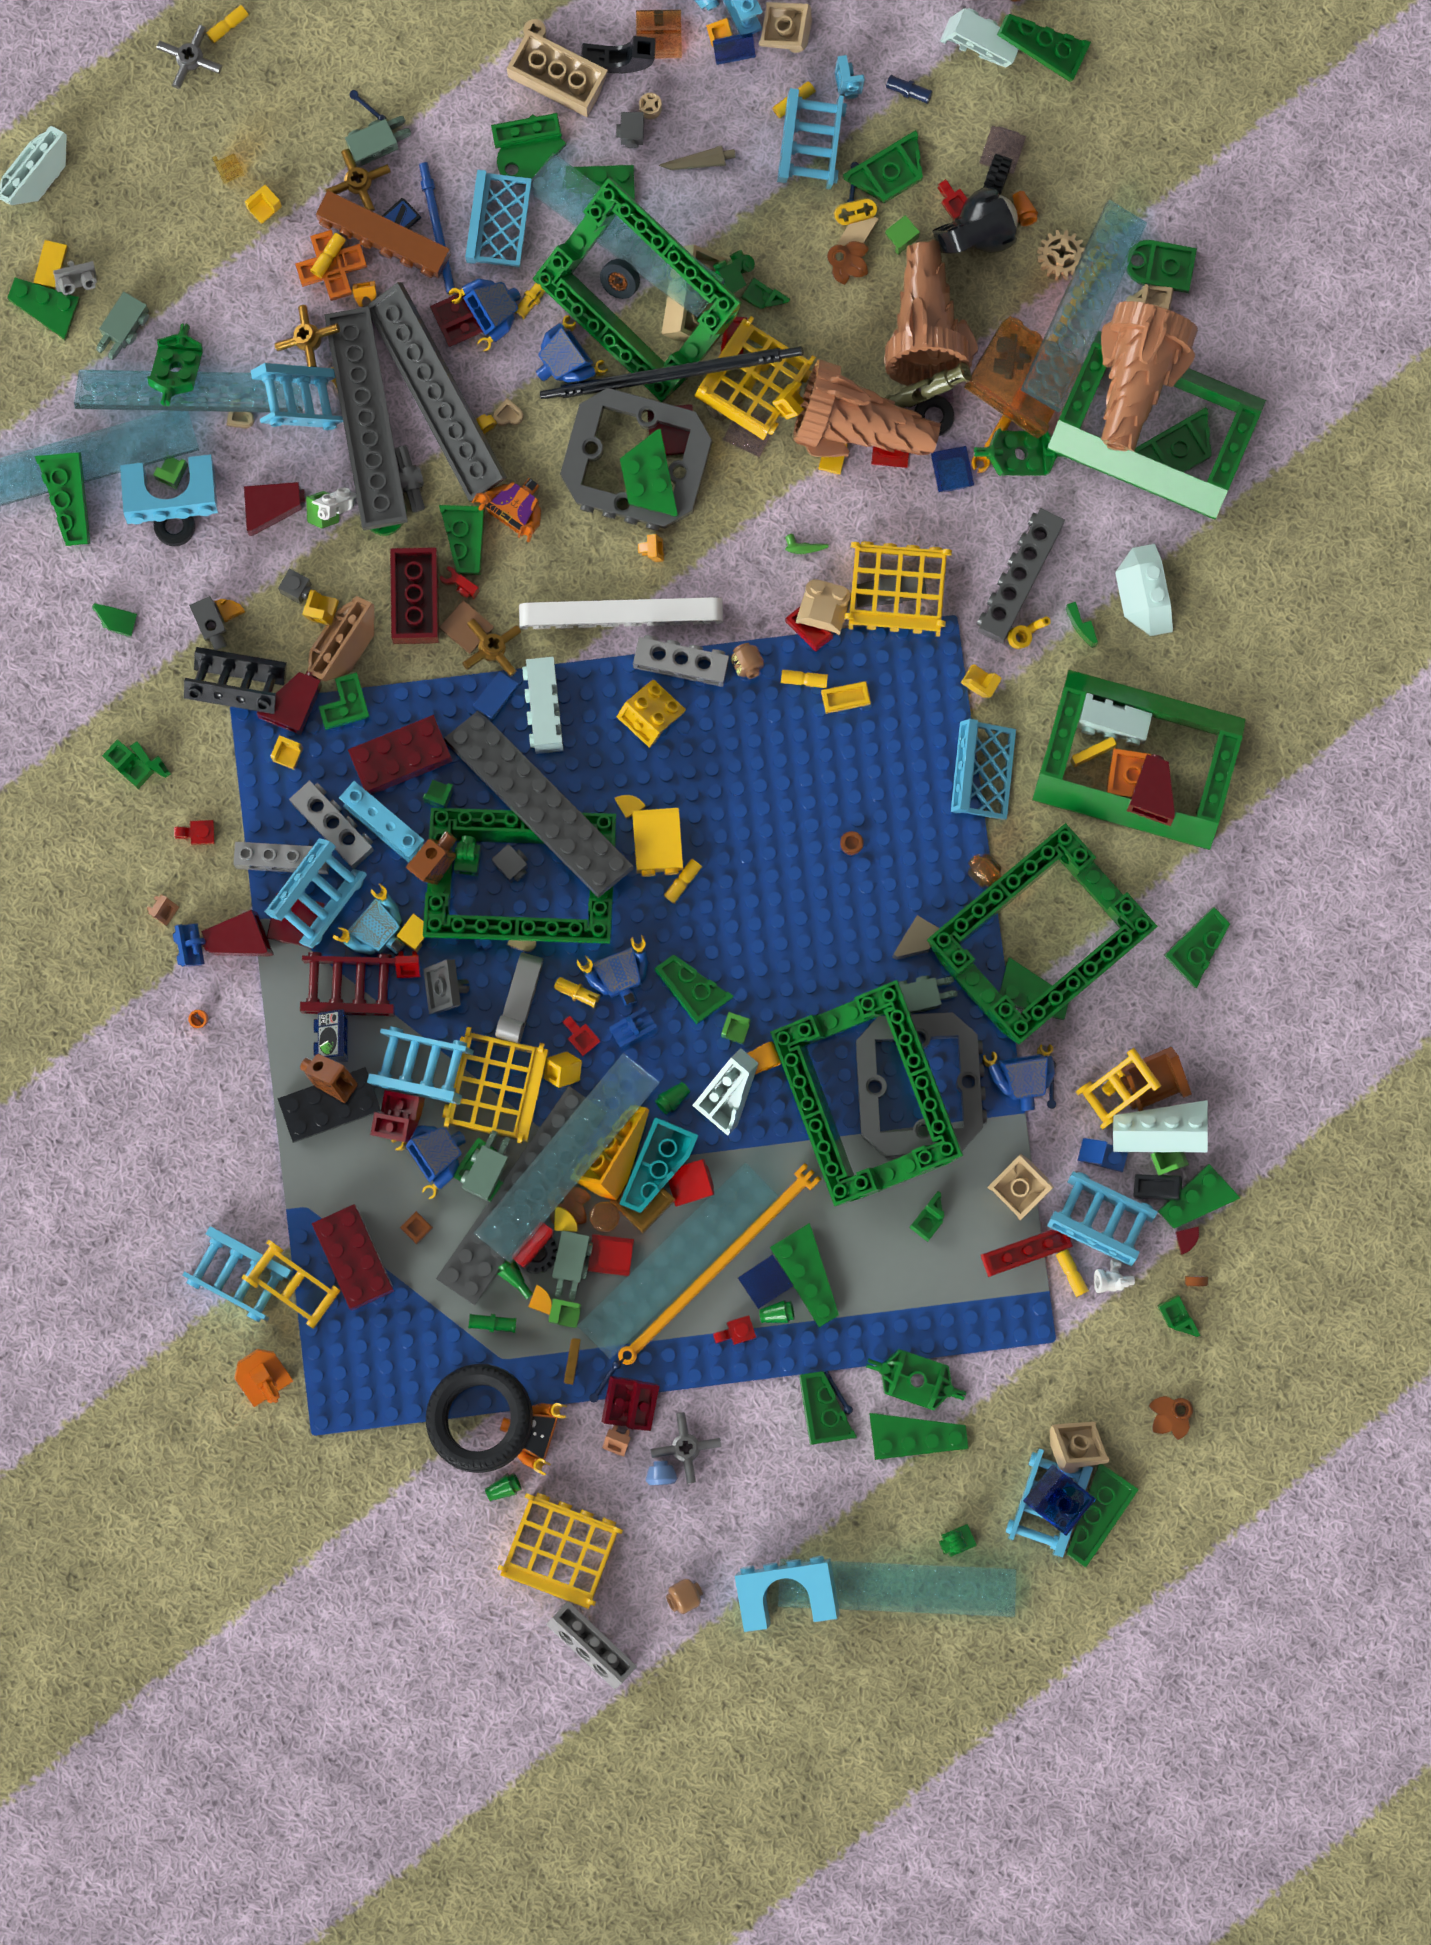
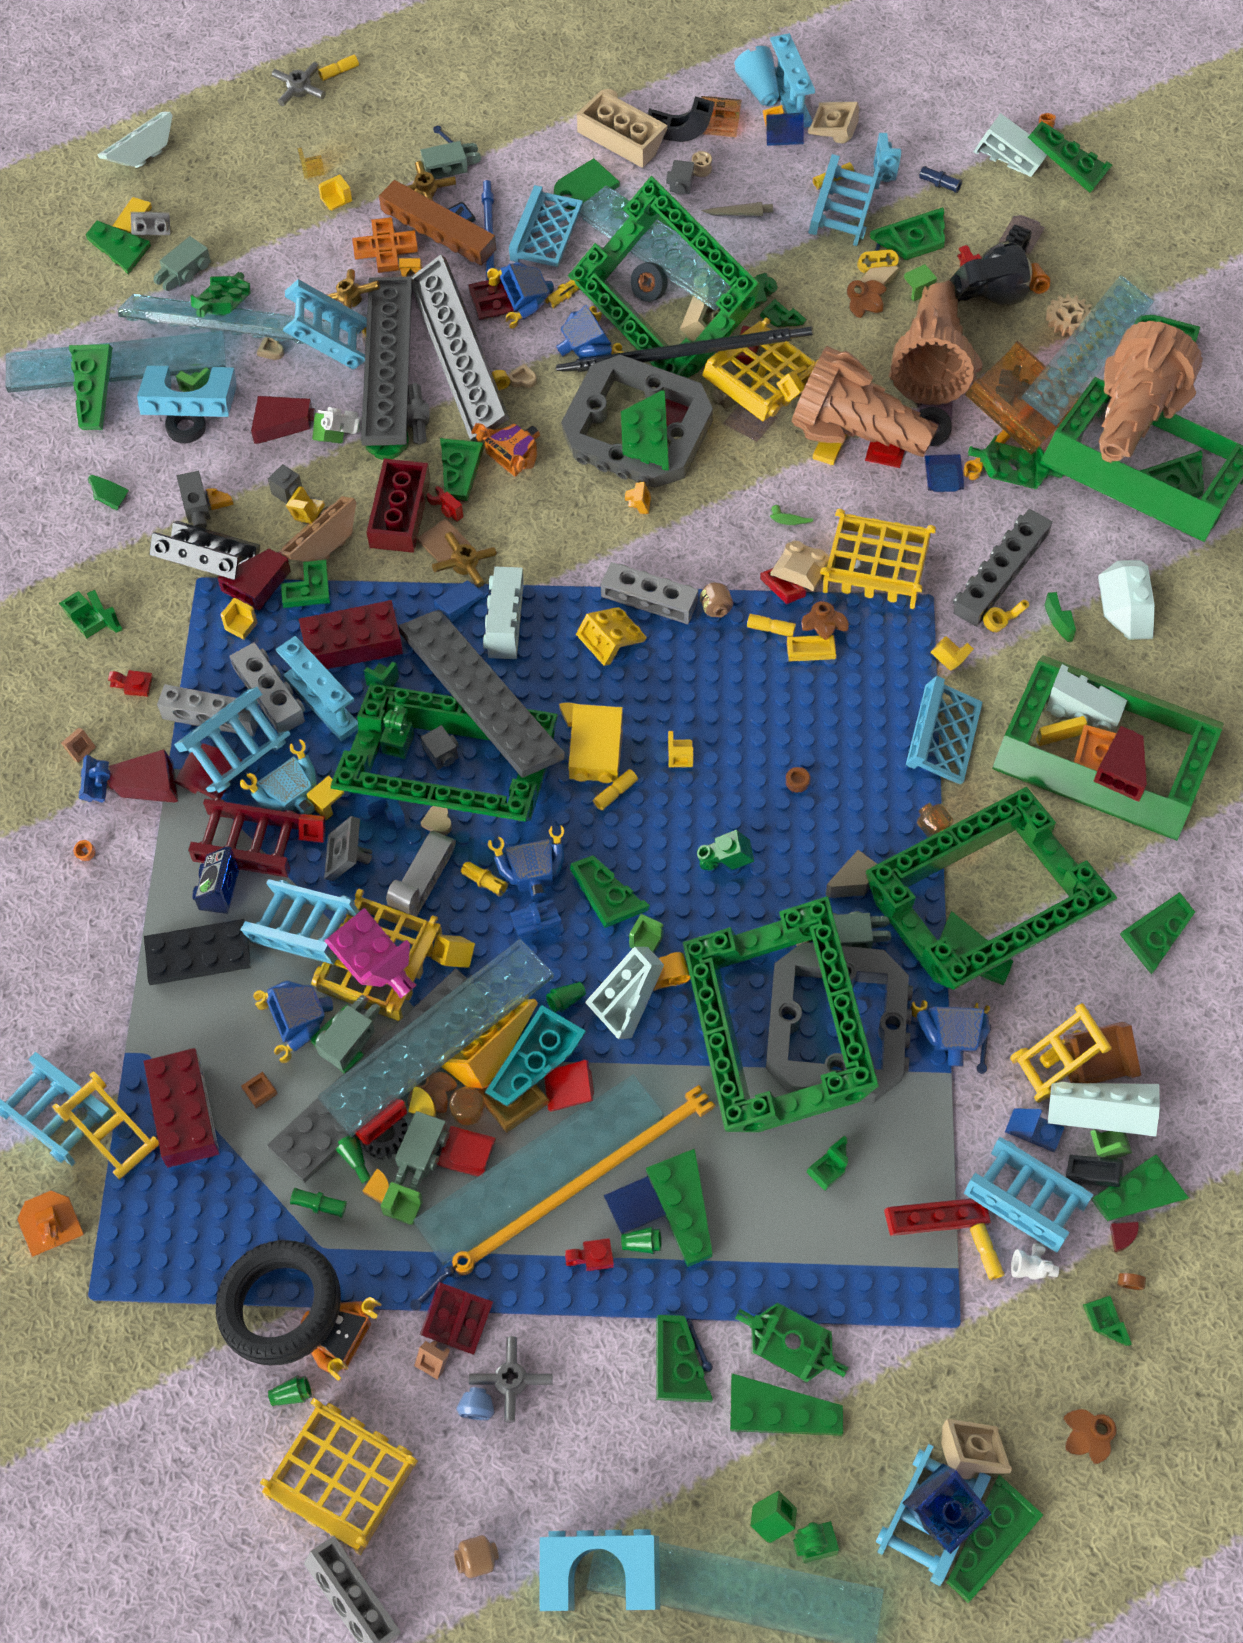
camera: 10 degrees right, 20 degrees down
(327, 256) = (383, 232): yellow piece -> none
(329, 1076) = (197, 910): dark orange torso -> none
(398, 1116) = (266, 968): dark red slope -> none
(433, 859) = (358, 718): dark orange torso -> none
(494, 1093) = (371, 954): none -> dark pink plate
(526, 130) = (585, 167): green tile -> none
(572, 1361) = (399, 1257): pearl gold tile -> none
(582, 1038) = (479, 922): red plate -> none
(615, 612) = (598, 547): white beam -> none
(737, 831) = (679, 752): none -> yellow panel
(796, 932) = (730, 849): none -> green brick
(855, 669) = (824, 622): none -> dark orange plate
(920, 1525) = (773, 1517): none -> green panel
(938, 384) = (942, 387): olive piece -> none
(1021, 1186) = (938, 1143): tan slope -> none

